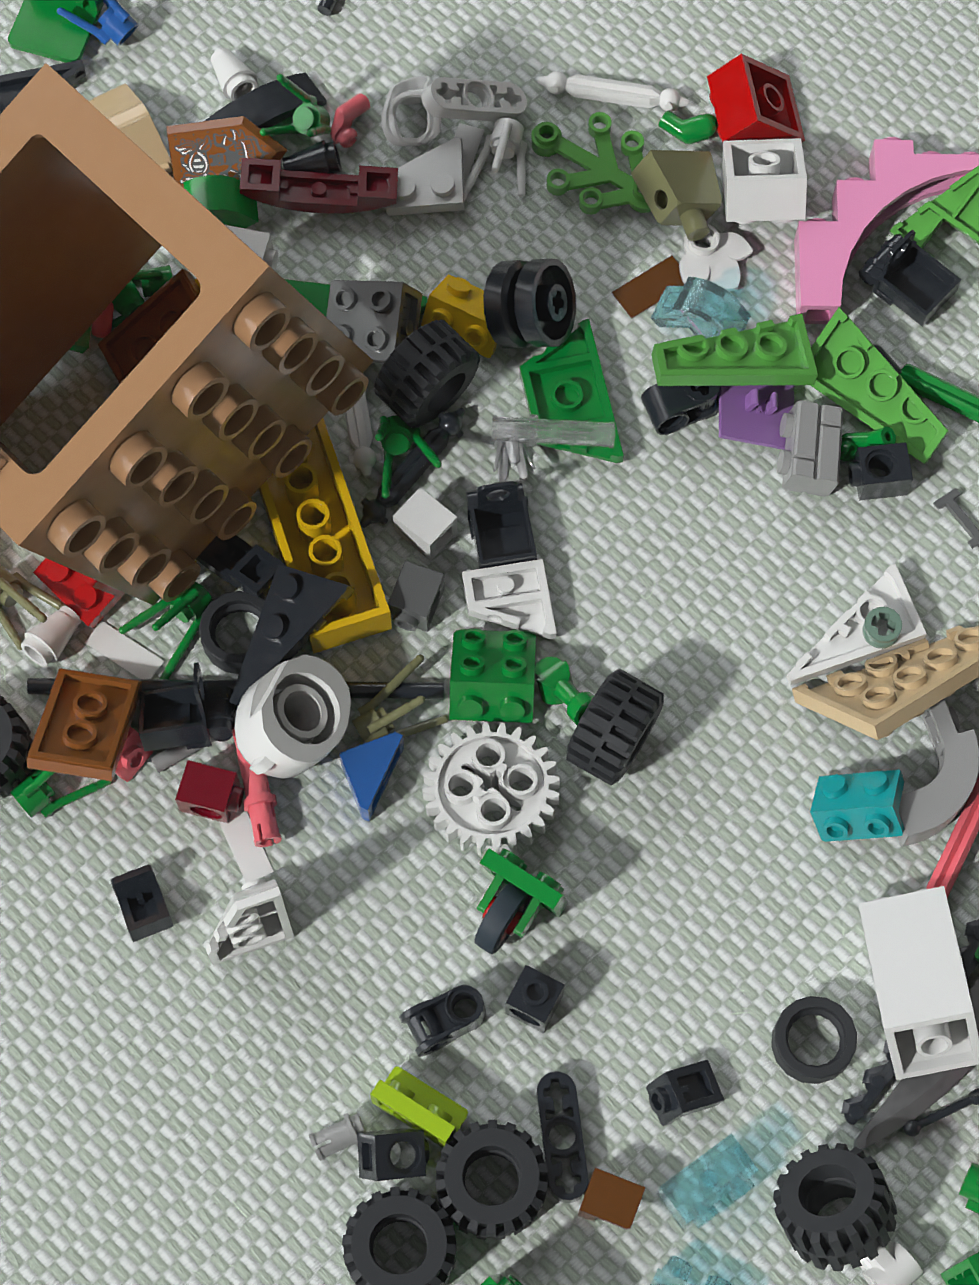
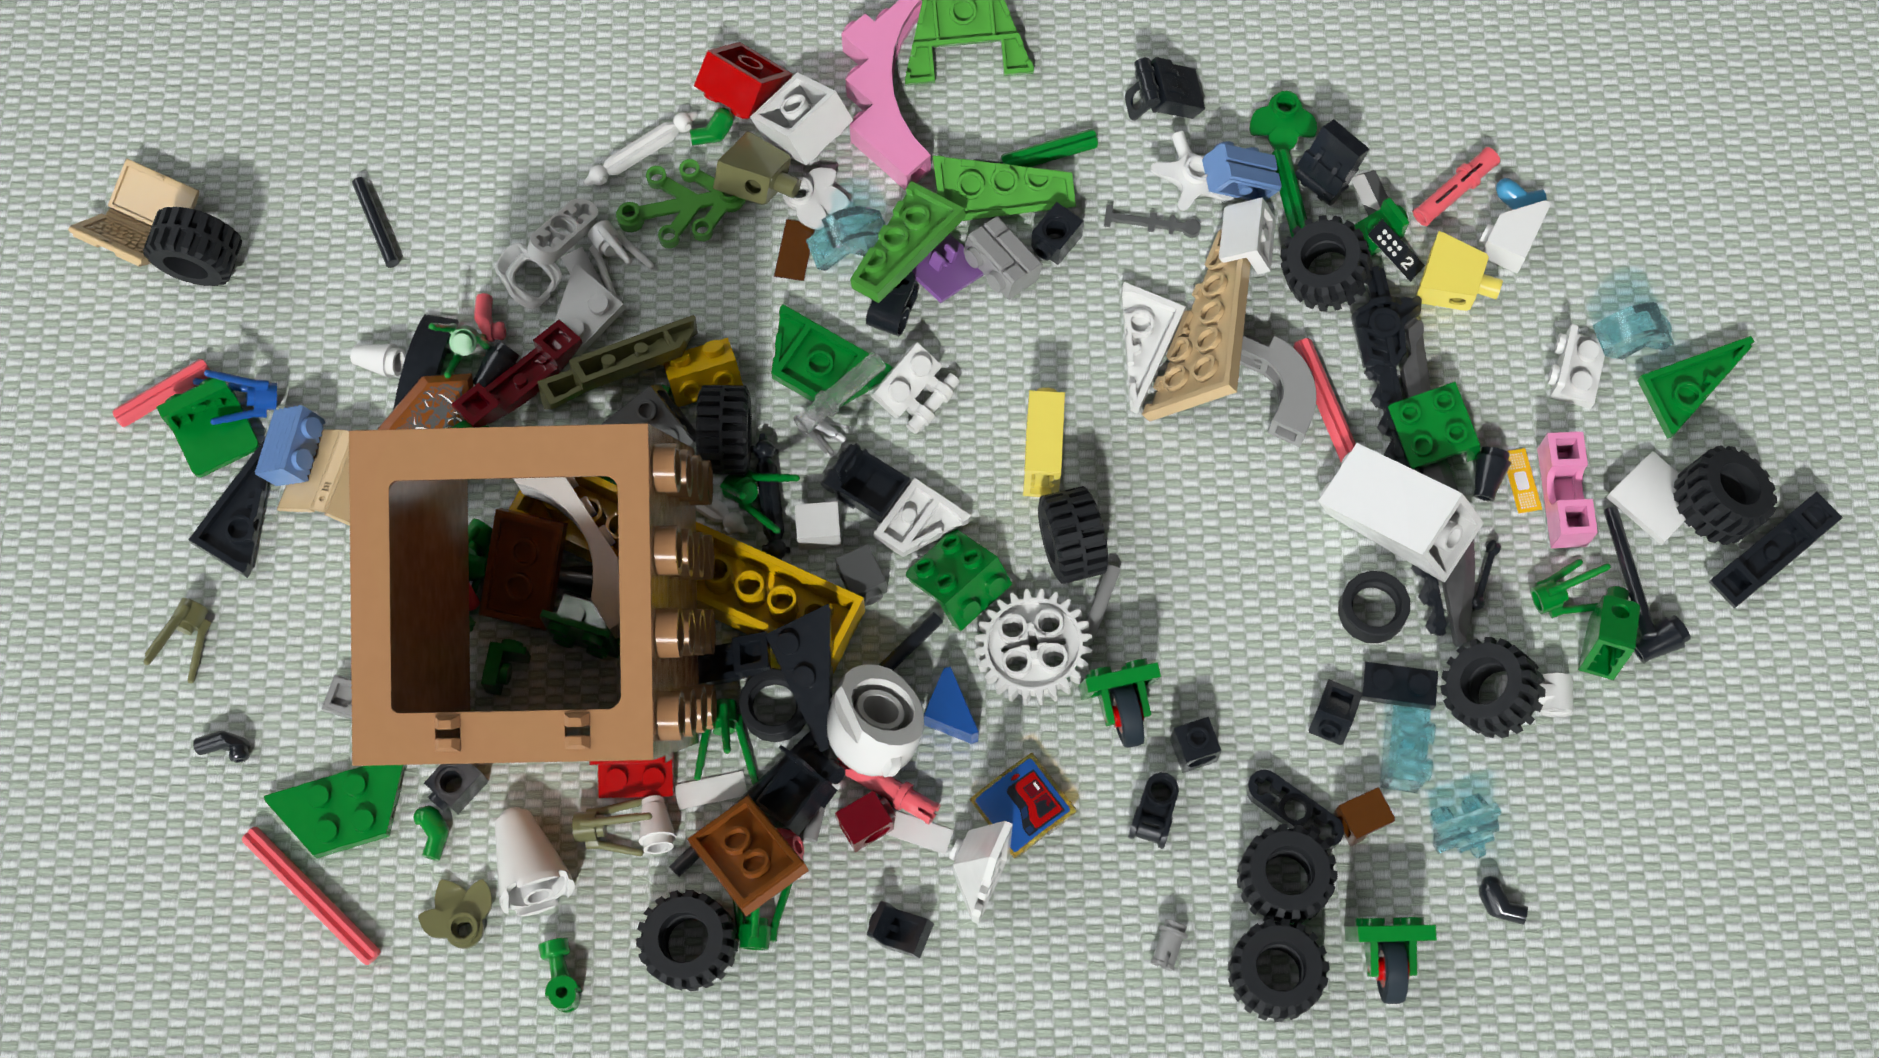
camera: 45 degrees left, 0 degrees up
(67, 395) = (497, 669): none -> green bracket
(102, 75) = (290, 446): none -> medium blue brick
(346, 906) = (1028, 800): none -> slope
(375, 1152) = (1214, 921): black brick -> none
(377, 723) = (924, 676): olive plant -> none
(406, 243) = (618, 361): none -> olive wedge
(419, 1106) = (1198, 877): lime bracket -> none
(530, 303) = (741, 326): black wheel -> none
(557, 687) = (1008, 546): green leg -> none
(584, 810) = (1101, 600): none -> light grey bar
(622, 475) = (907, 380): none -> white plate
(675, 629) = (1043, 442): none -> light yellow window
(764, 1126) = (1399, 685): none -> black plate
(853, 440) = (1024, 228): green arm -> none
(858, 805) = (1256, 444): teal bracket -> none
(871, 632) = (1160, 316): sand green bush -> none
(909, 278) = (947, 101): black piece -> none

